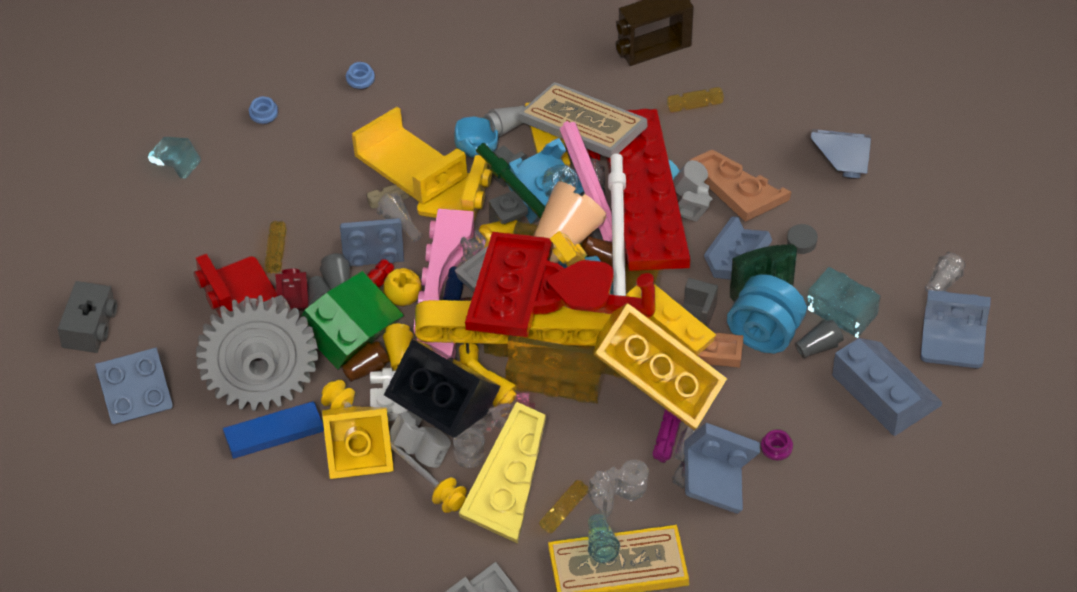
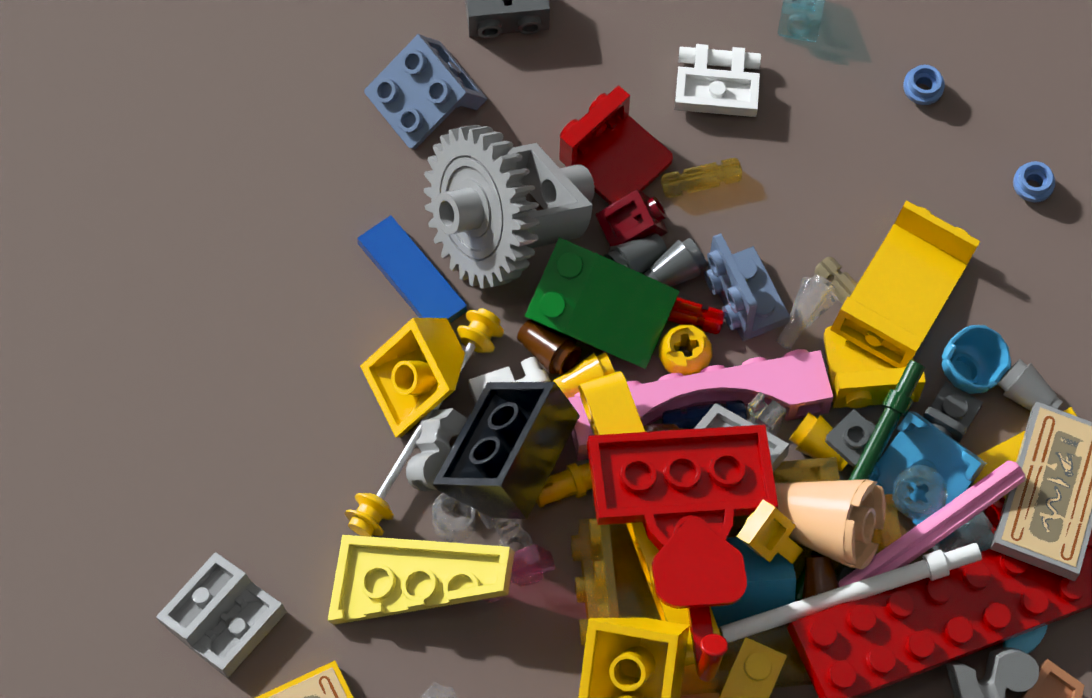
camera: 70 degrees right, 15 degrees up
(213, 221) = (718, 90): none -> white plate
(506, 392) = (556, 519): yellow cone -> none
(564, 506) = (399, 664): clear yellow axle -> none

